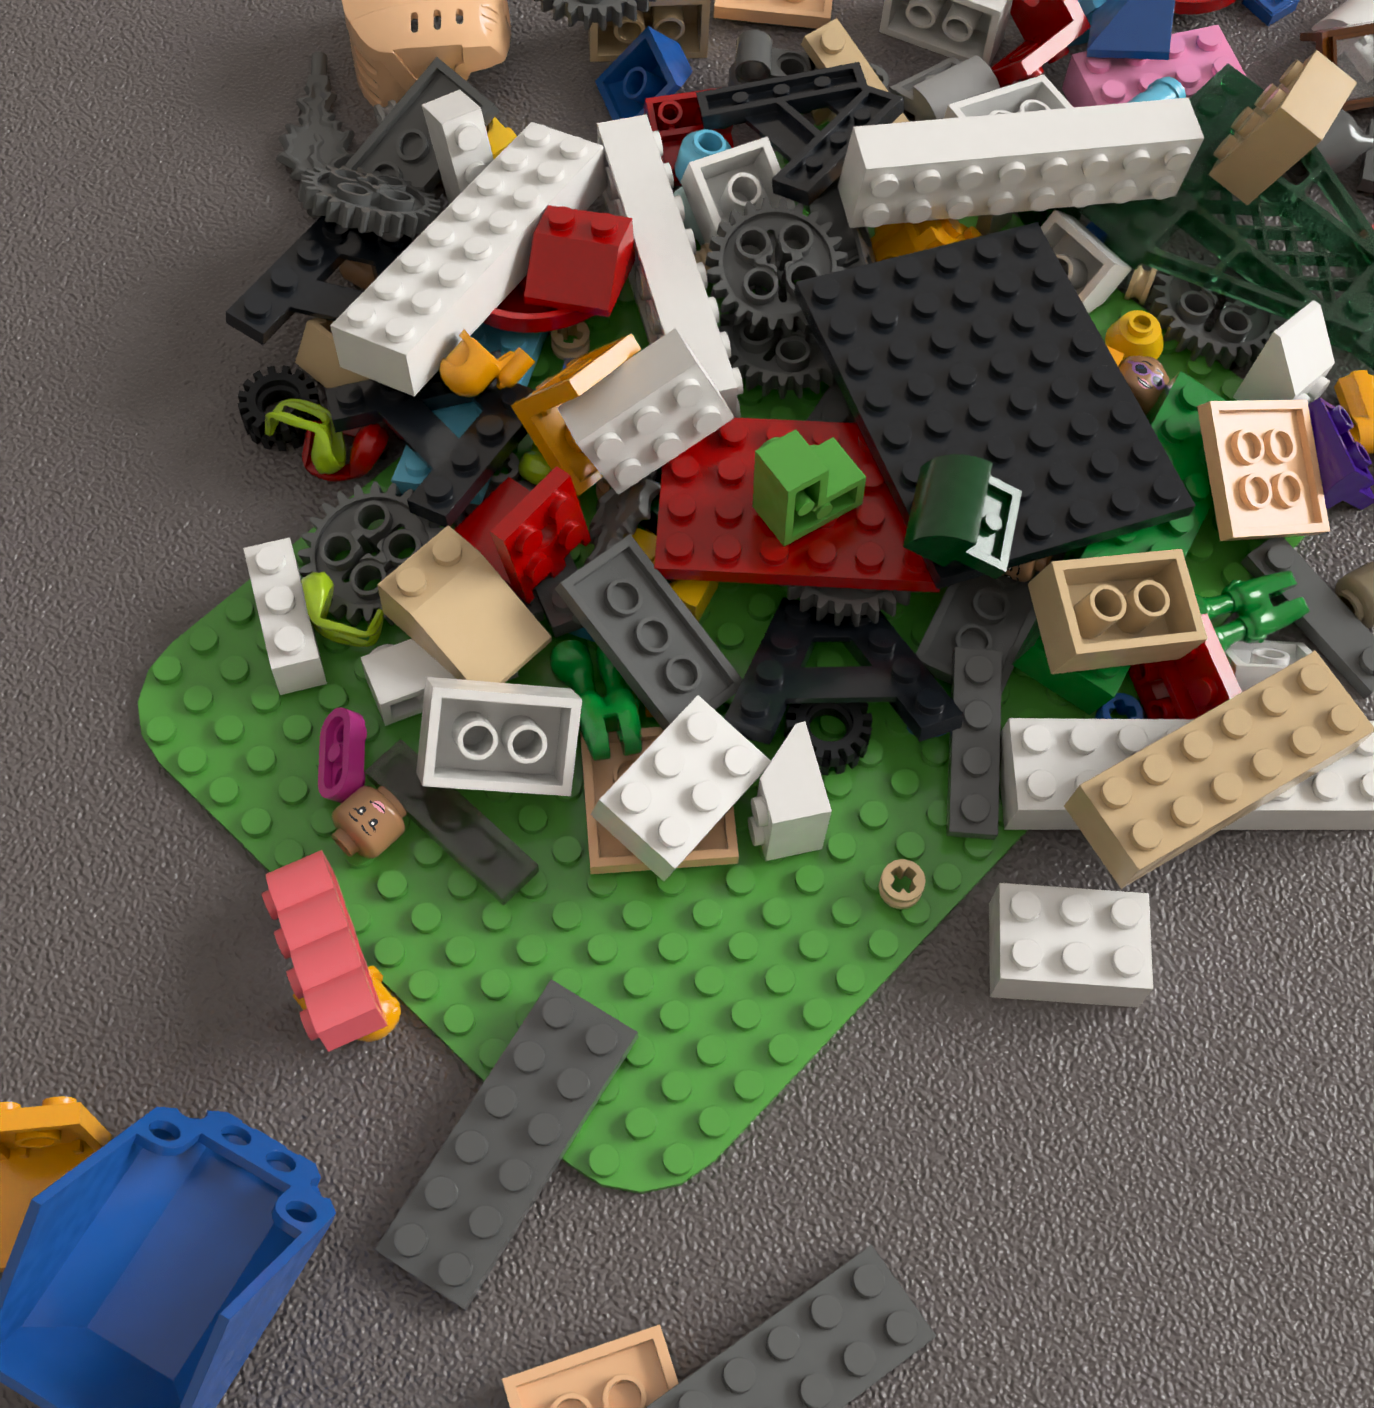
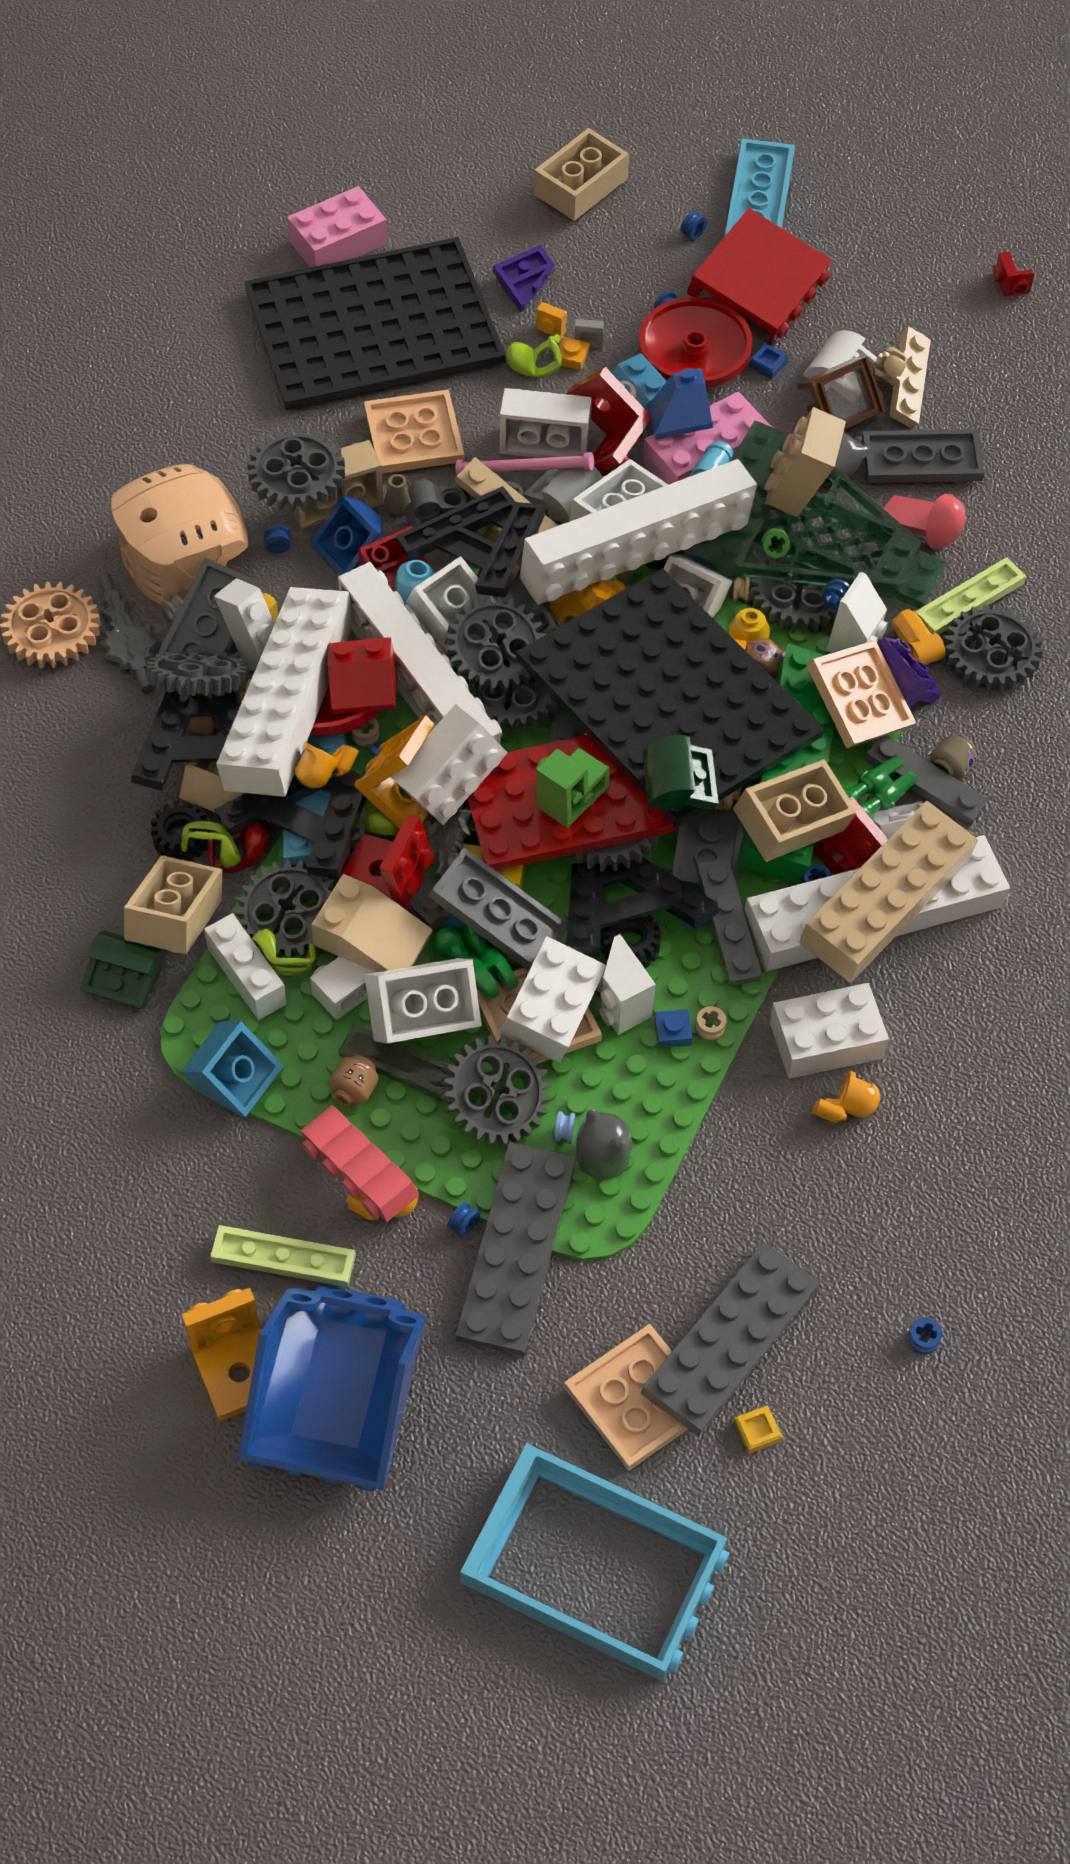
camera: 15 degrees left, 5 degrees down
(128, 570) = (122, 969): none -> dark green brick
(180, 1050) = (283, 1256): none -> yellowish green plate
(213, 755) = (232, 1067): none -> dark azure slope
(220, 503) = (173, 904): none -> tan brick
(225, 98) = (50, 625): none -> light nougat gear
(341, 754) = (318, 1044): dark pink plate -> none
(450, 1073) = (463, 1219): none -> blue bush
(551, 74) = (277, 539): none -> blue bush
(592, 928) = (523, 1104): none -> dark grey gear
(639, 980) = (564, 1127): none -> light blue bush
(683, 1025) = (603, 1145): none -> dark grey piece
(722, 48) = (396, 496): none -> dark tan cone
(845, 875) = (673, 1028): none -> blue plate
(983, 61) = (585, 462): none -> bright pink bar
(1074, 1058) = (854, 1098): none -> light orange piece
(1218, 236) = (767, 542): none -> bright green bush
(1261, 328) = (834, 593): none -> blue bush

